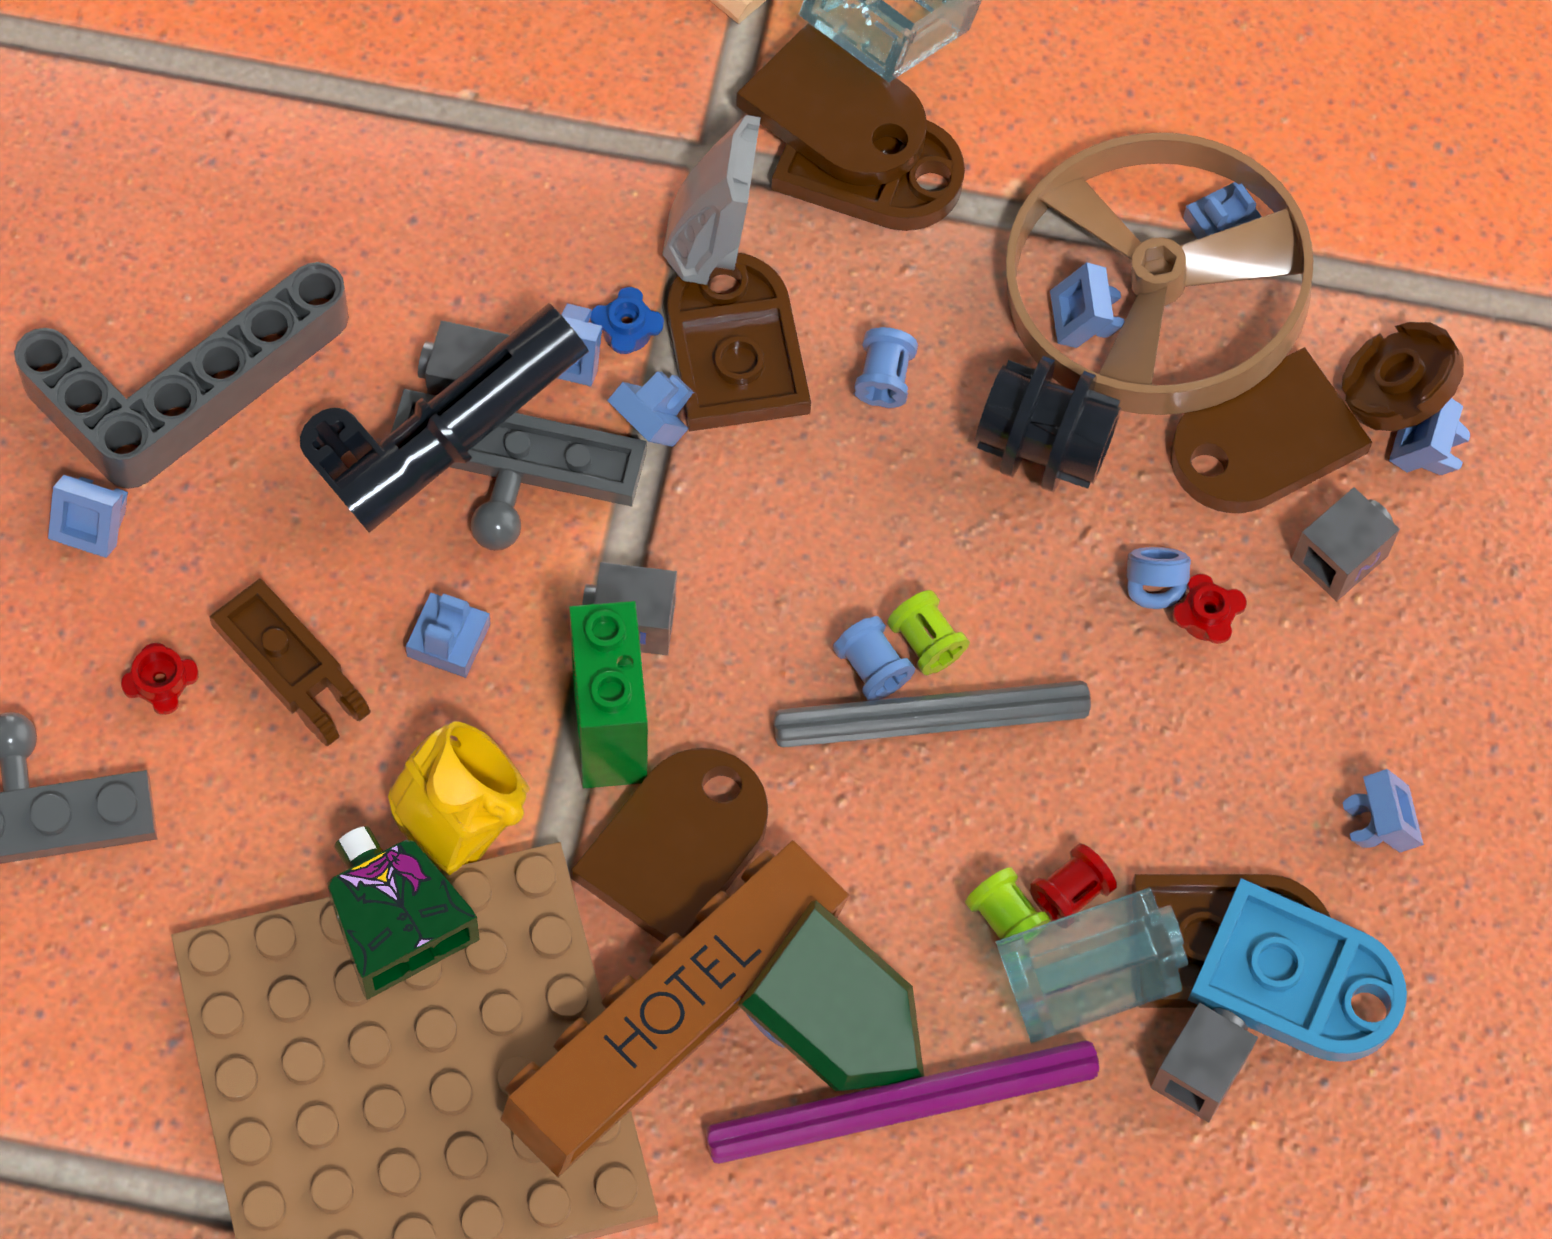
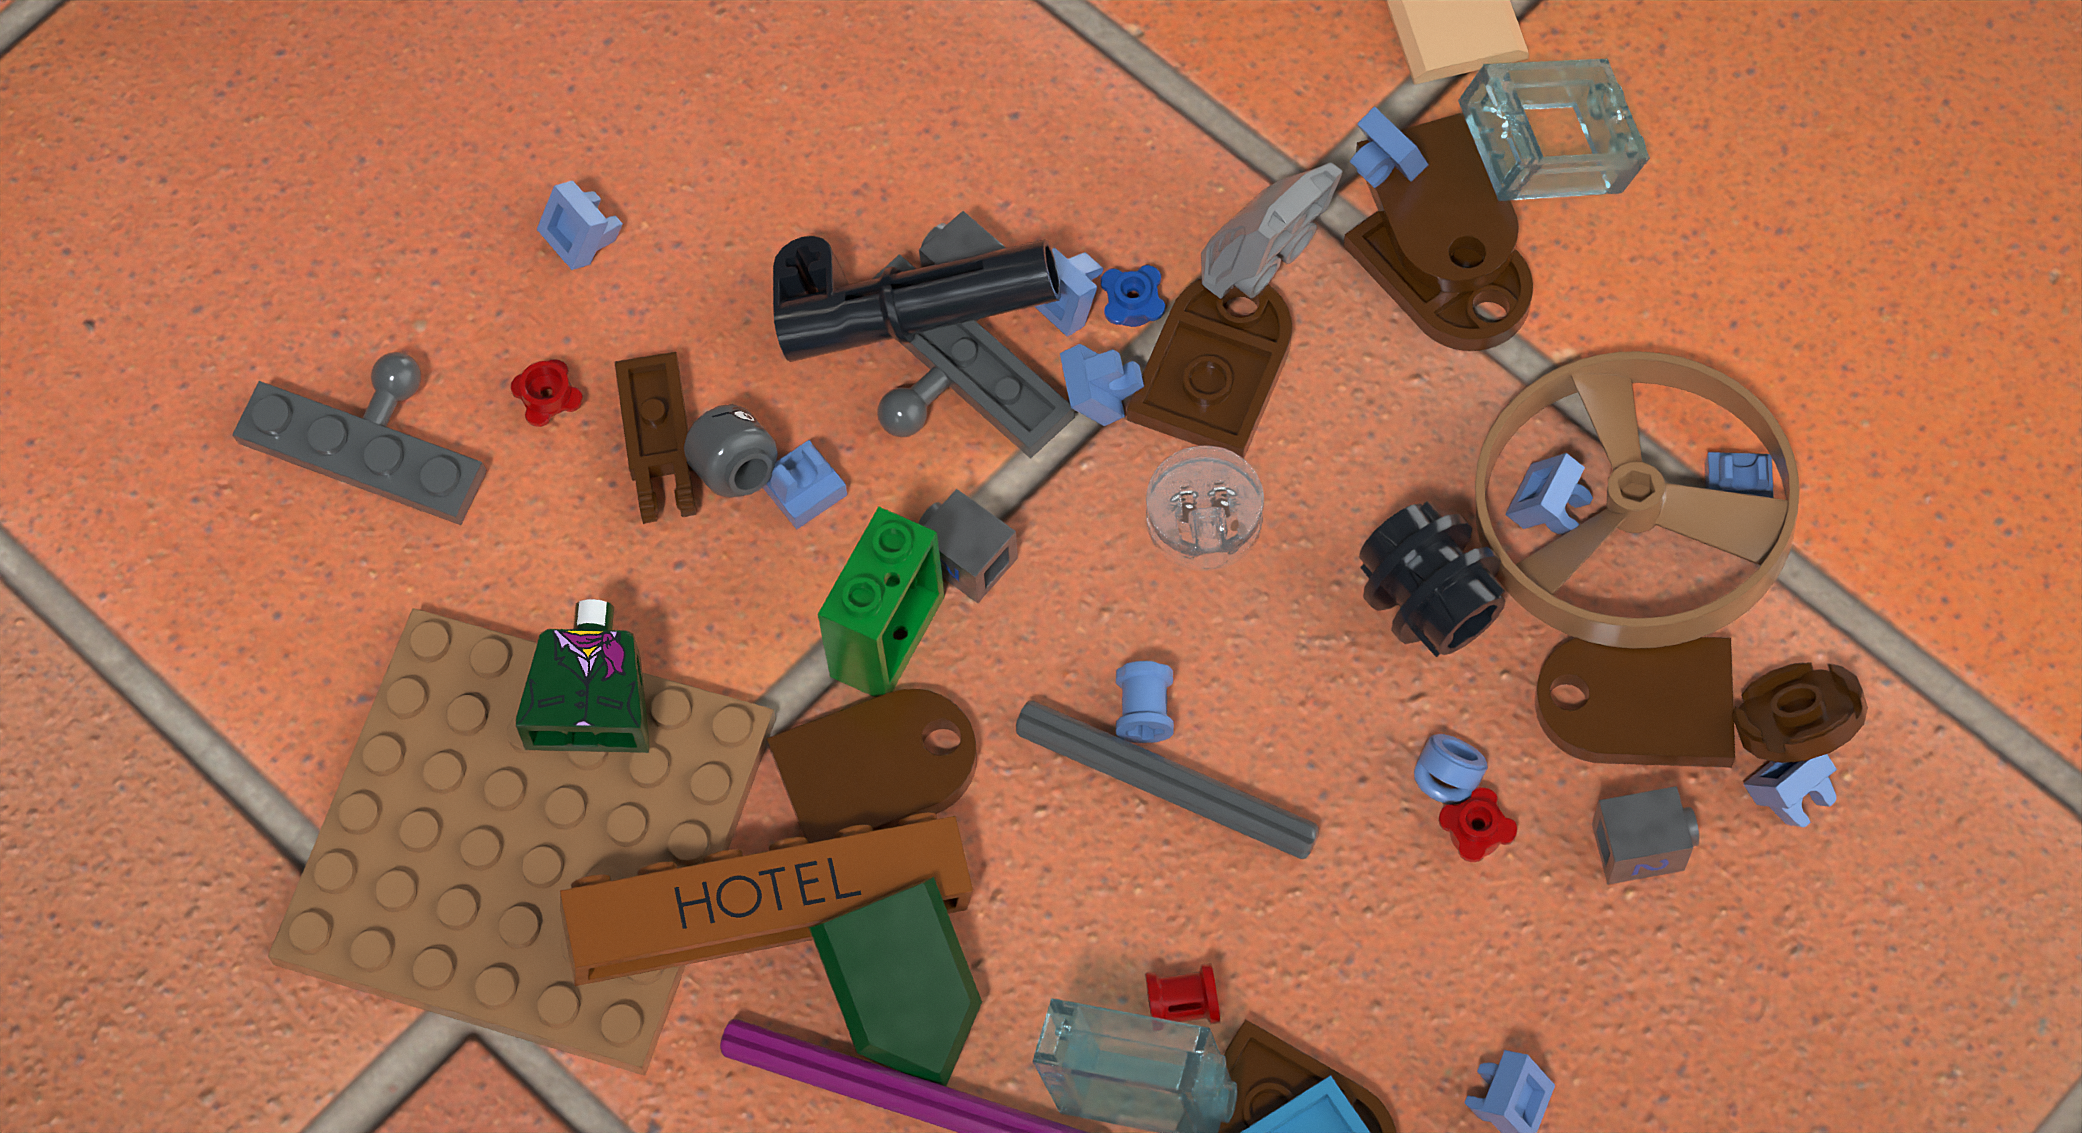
camera: 40 degrees right, 0 degrees up
(186, 382) = (735, 152): dark grey beam -> none
(373, 637) = (730, 451): none -> dark grey head
(457, 795) = (708, 634): yellow piece -> none
(774, 82) = (1385, 150): none -> medium blue tile
(812, 468) = (1204, 508): none -> clear head
(885, 367) = (1330, 453): medium blue bush -> none
(923, 612) = (1207, 705): lime bush -> none
(1005, 905) = (1111, 977): lime bush -> none

